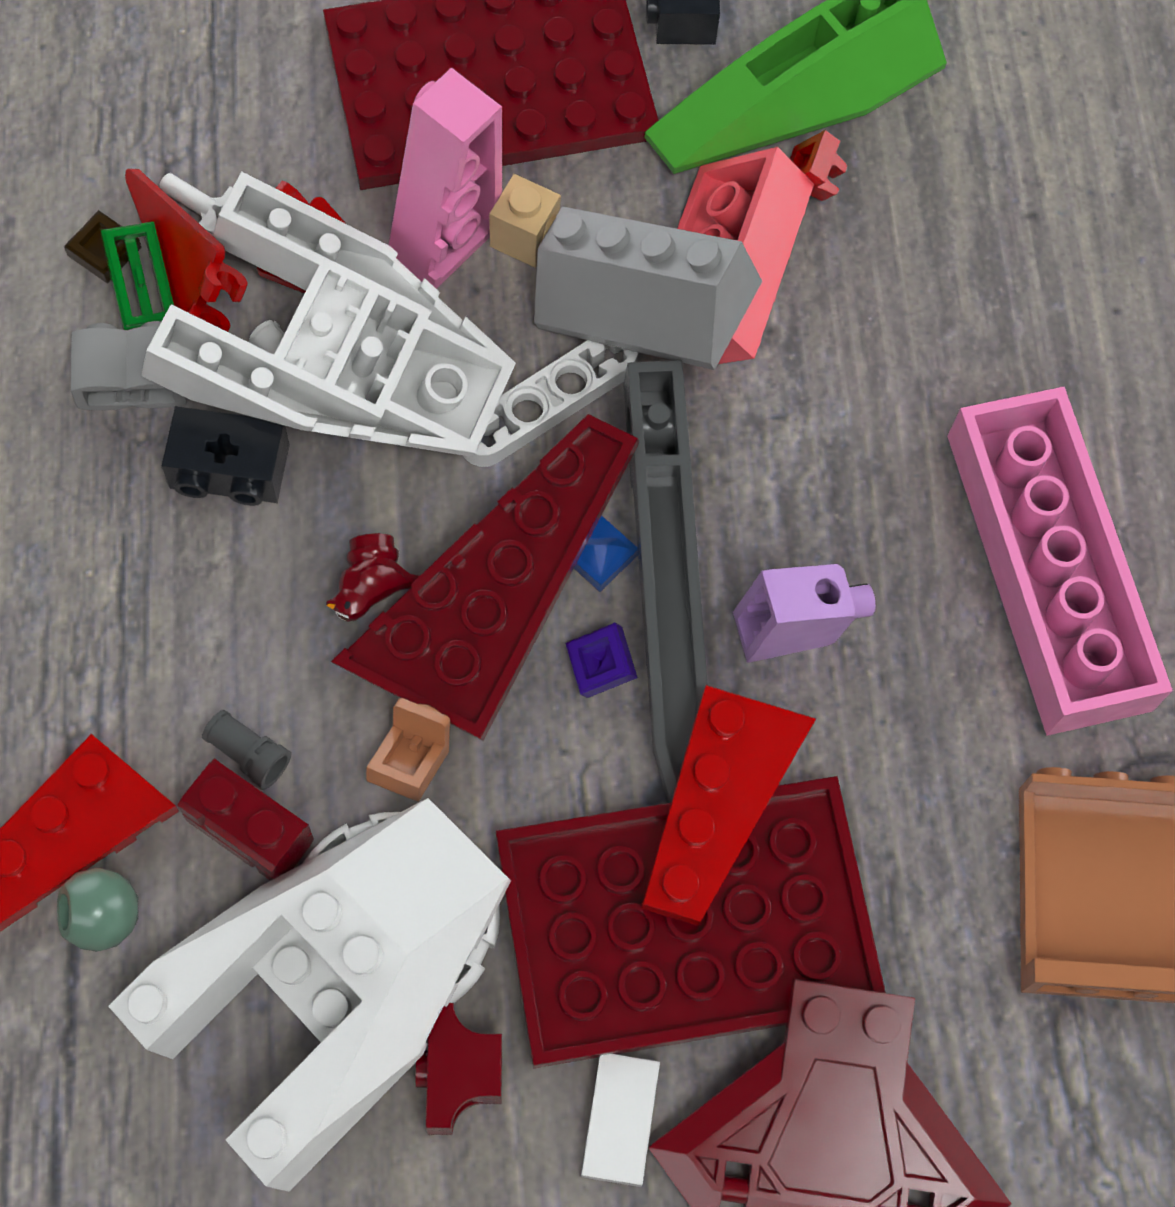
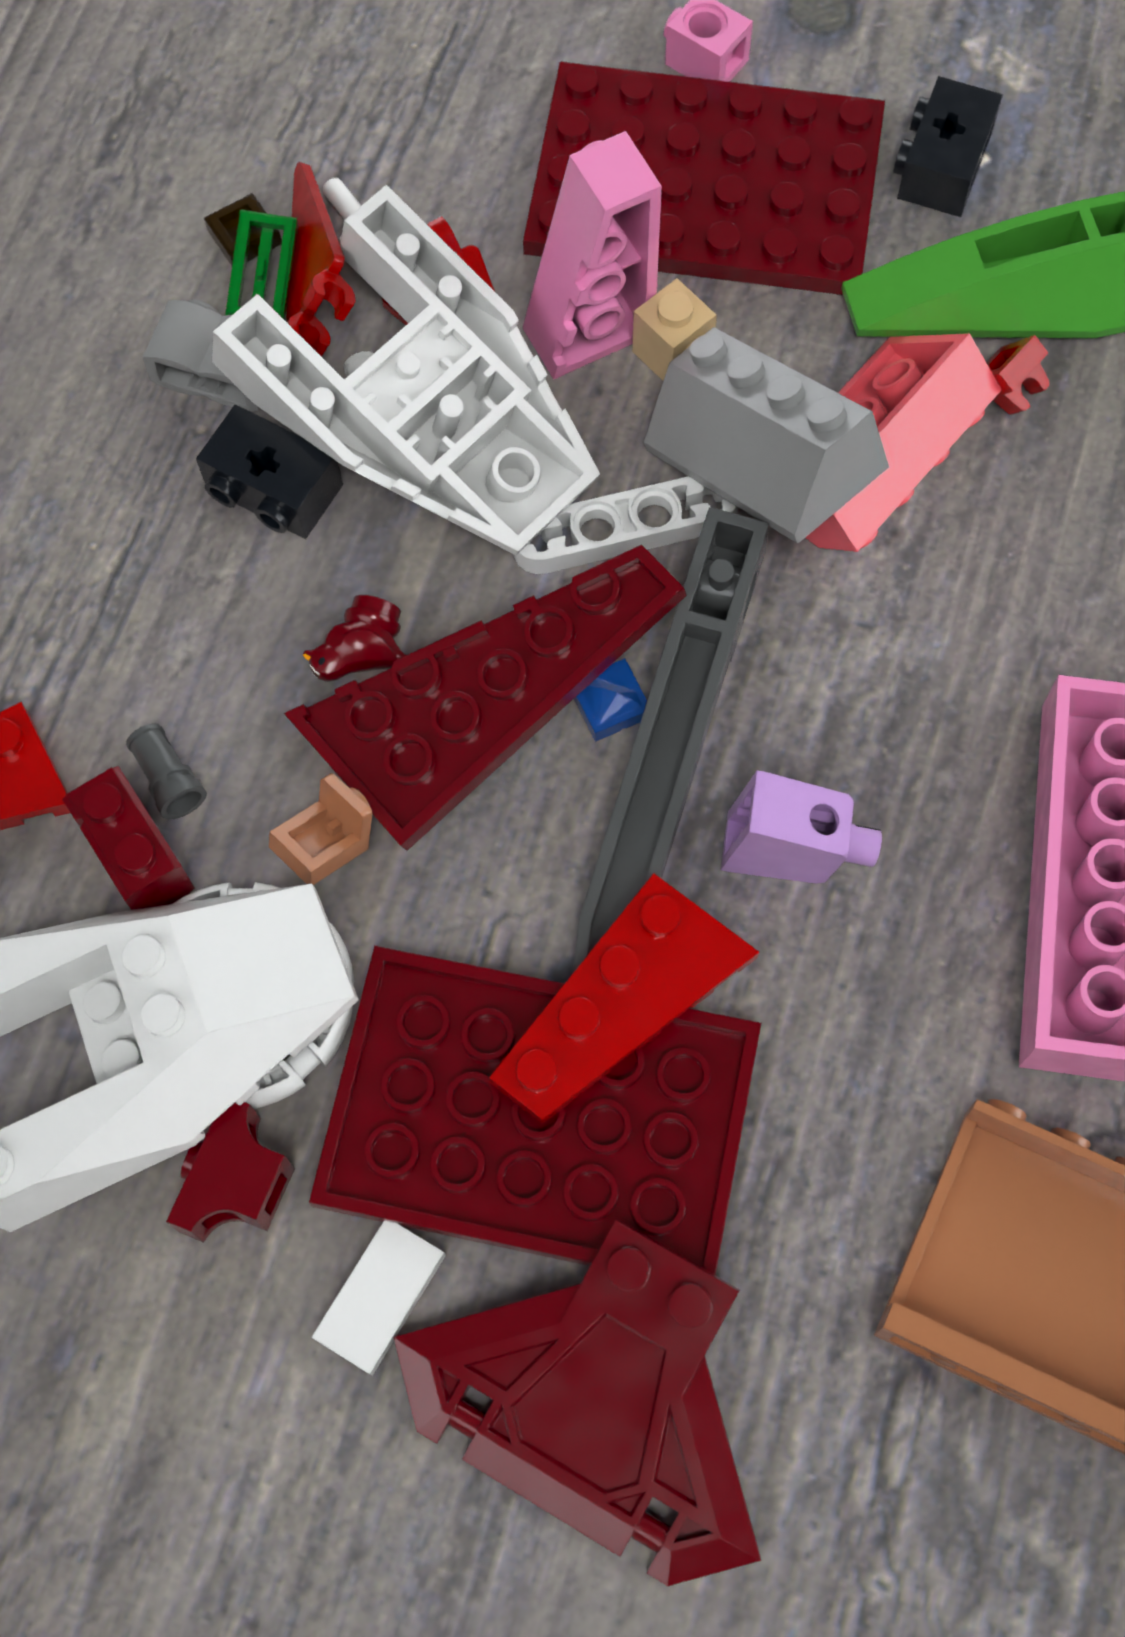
camera: 30 degrees right, 0 degrees up
(601, 660) = (562, 811): dark purple tile -> none

